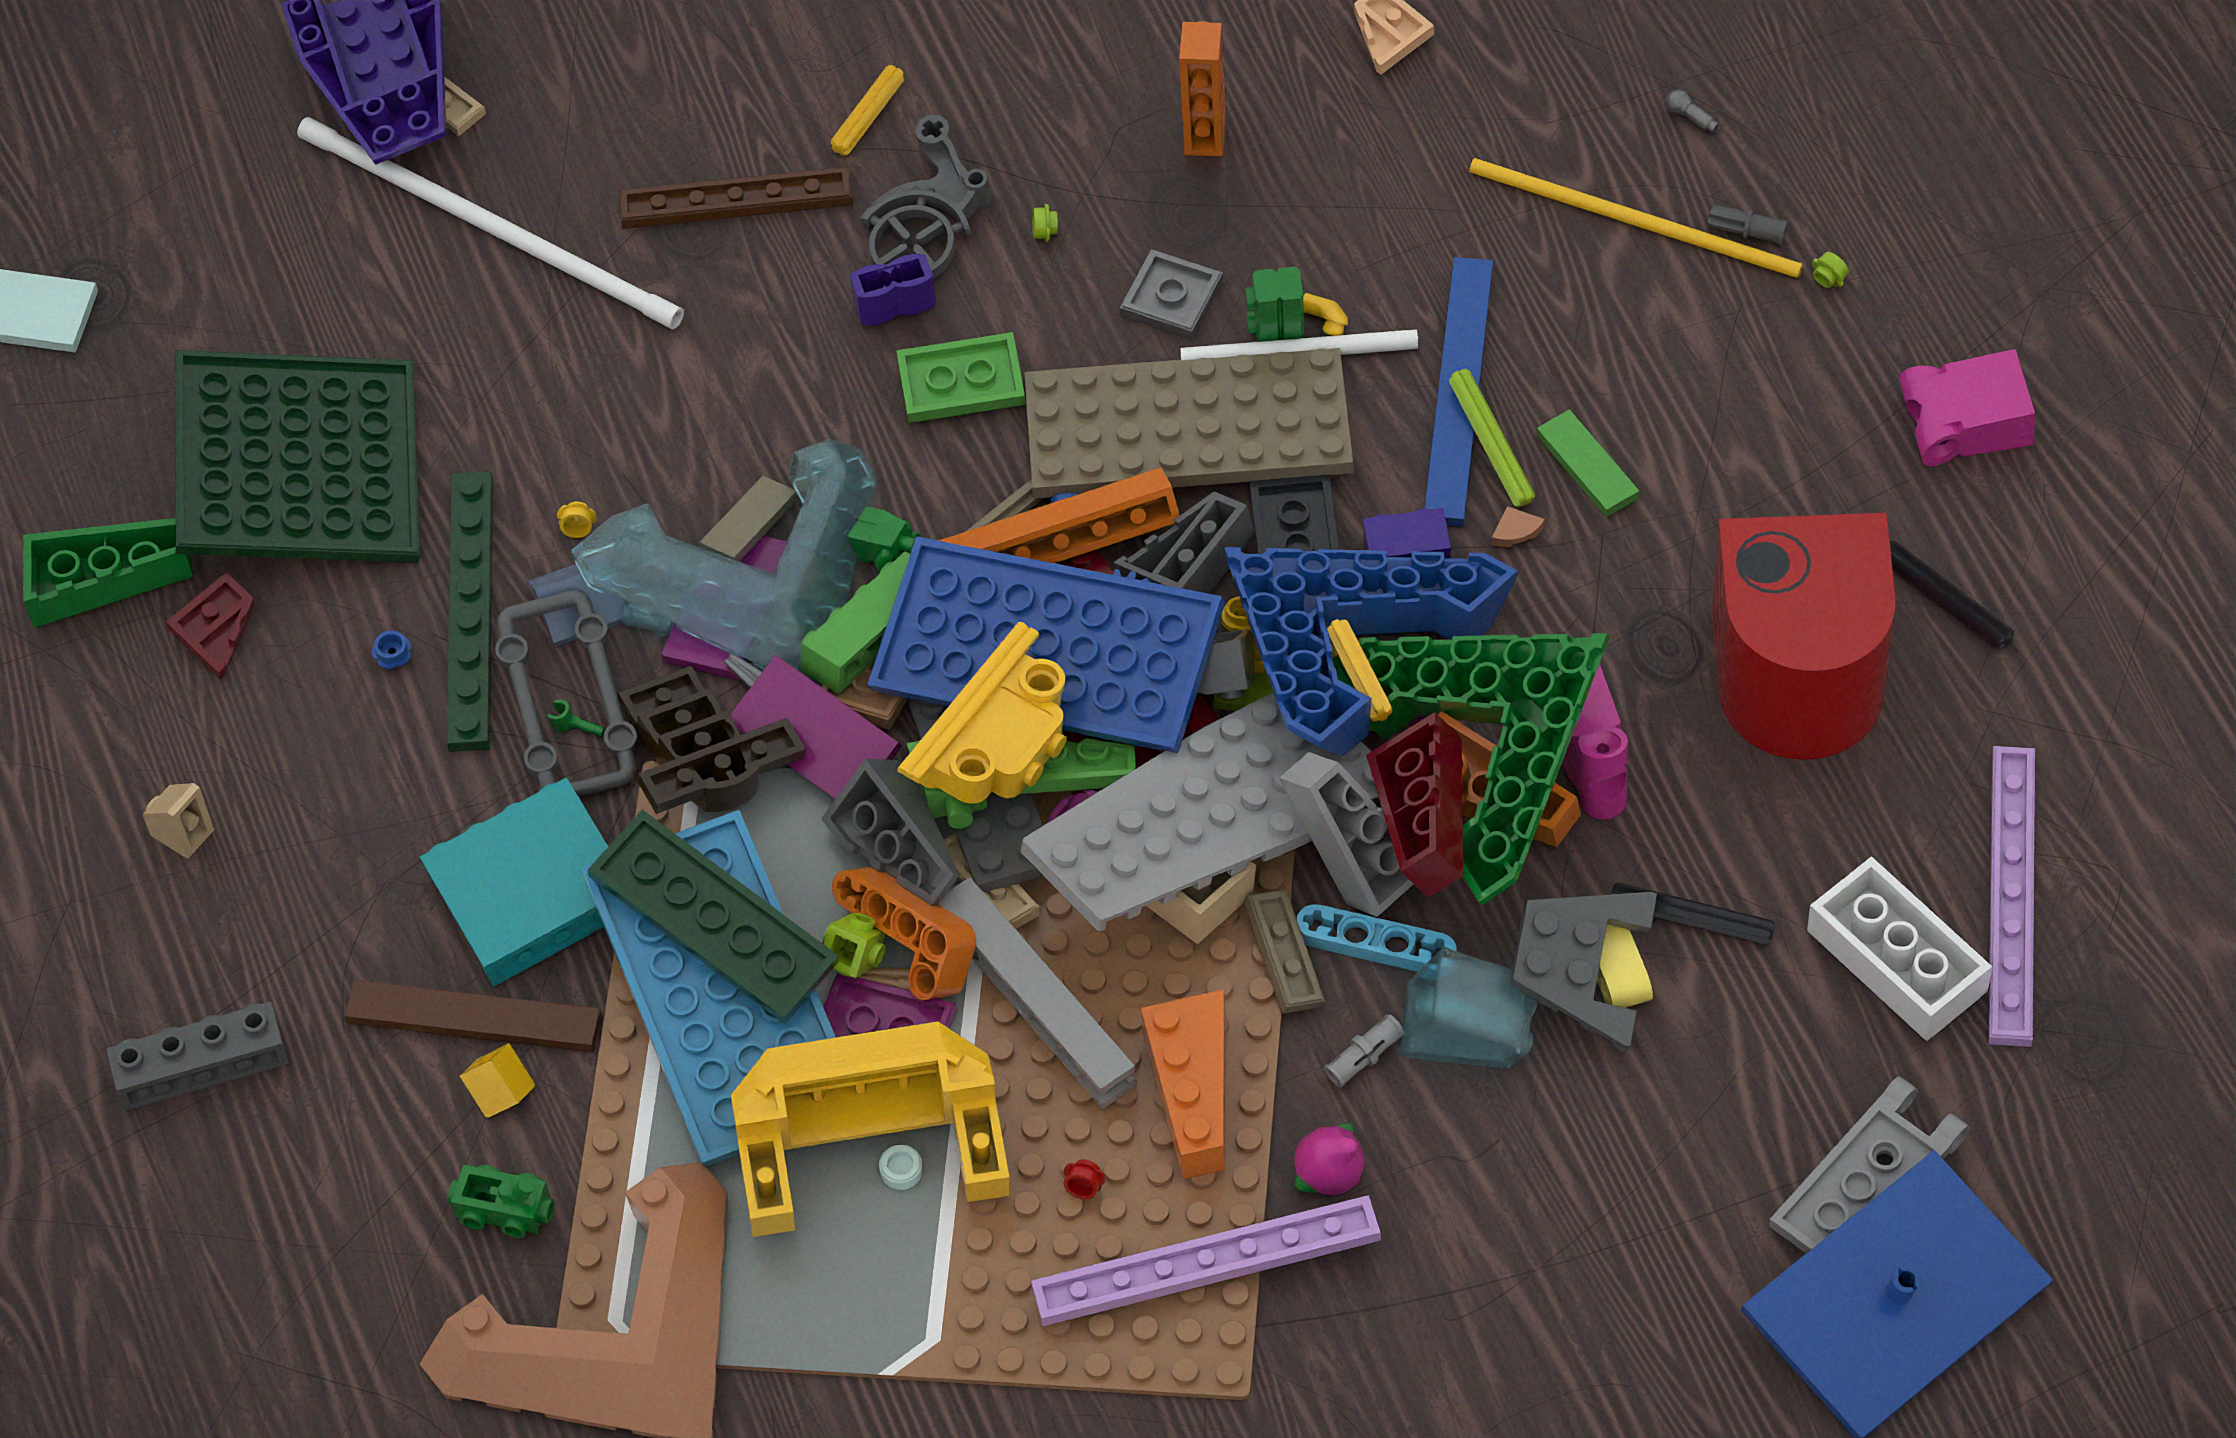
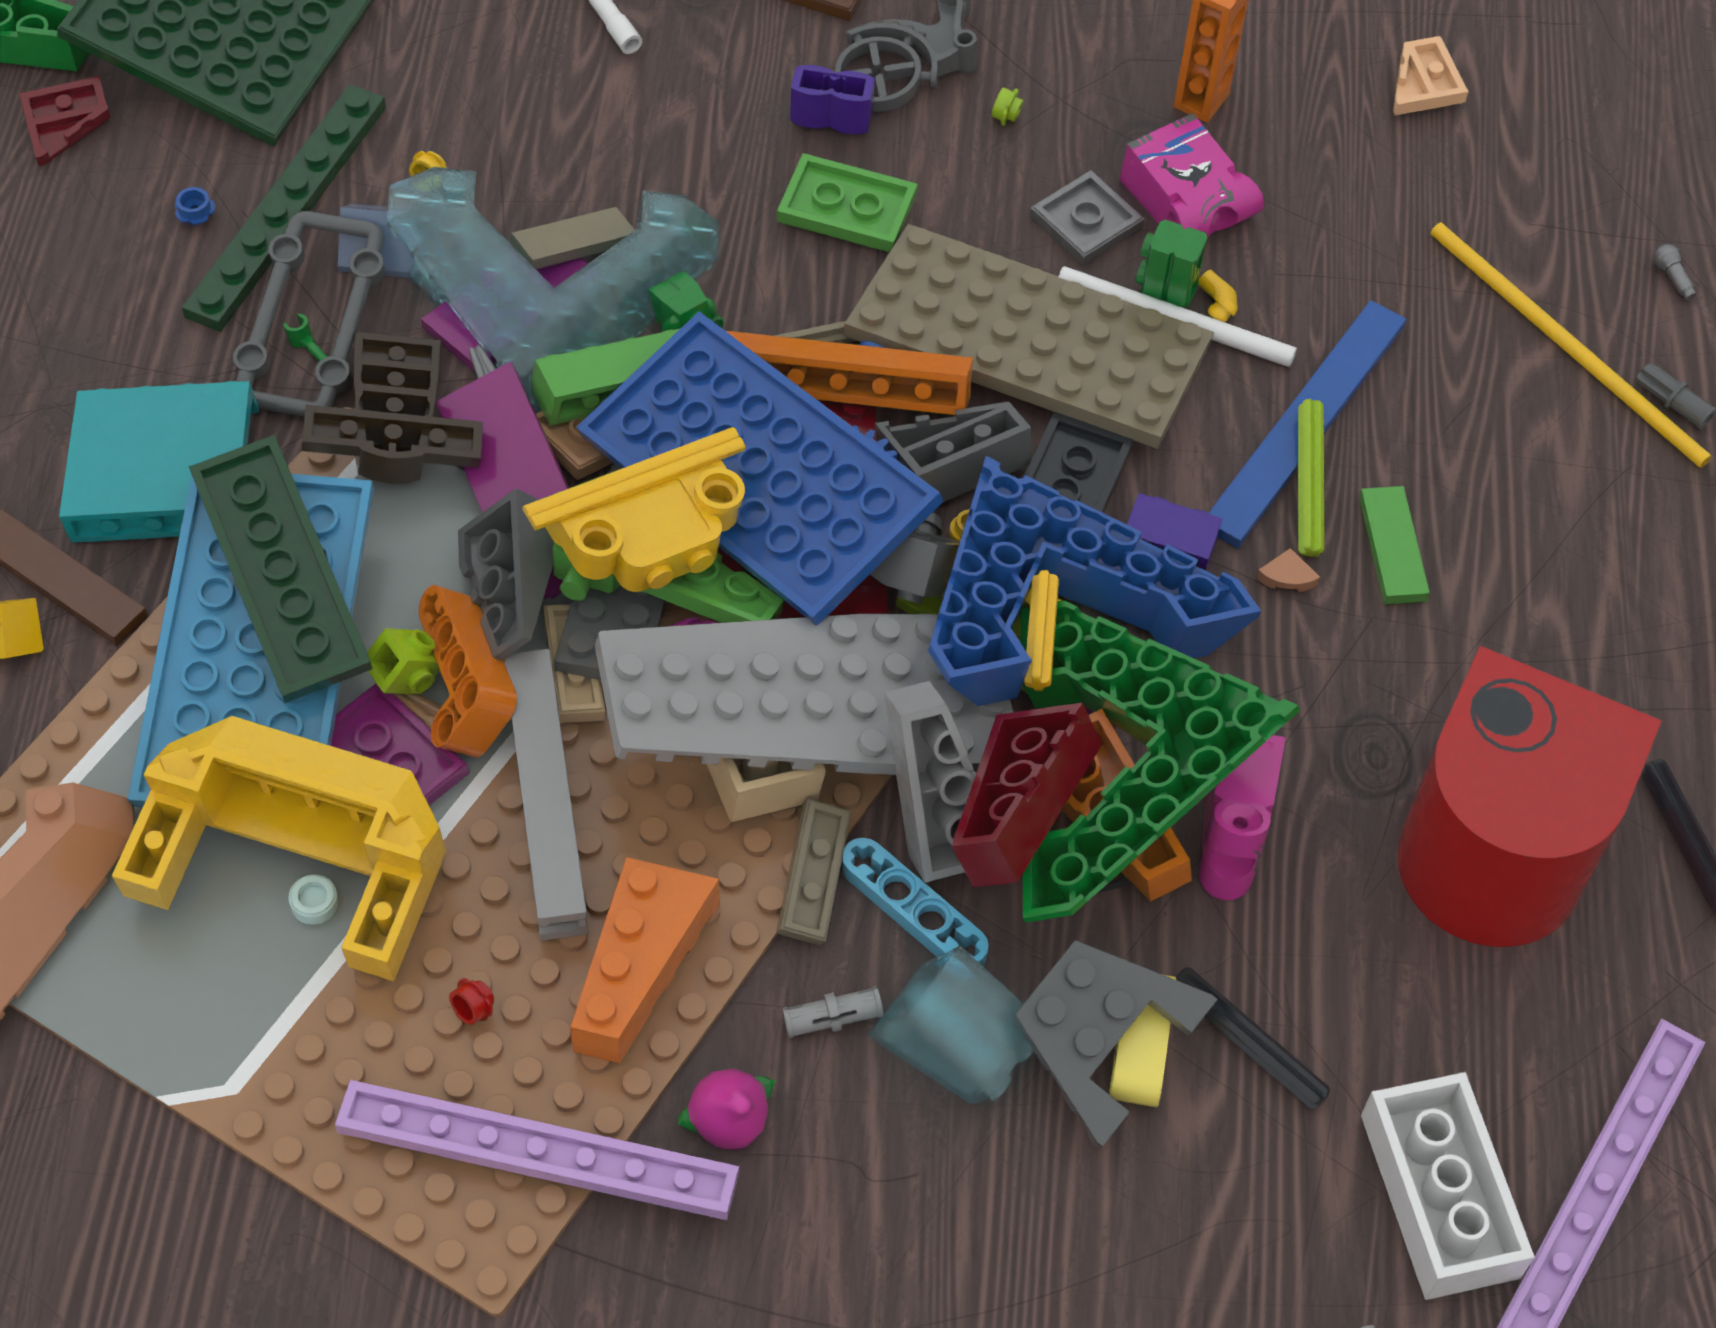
camera: 20 degrees right, 0 degrees up
(1243, 221) = (1188, 178): none -> dark pink piece

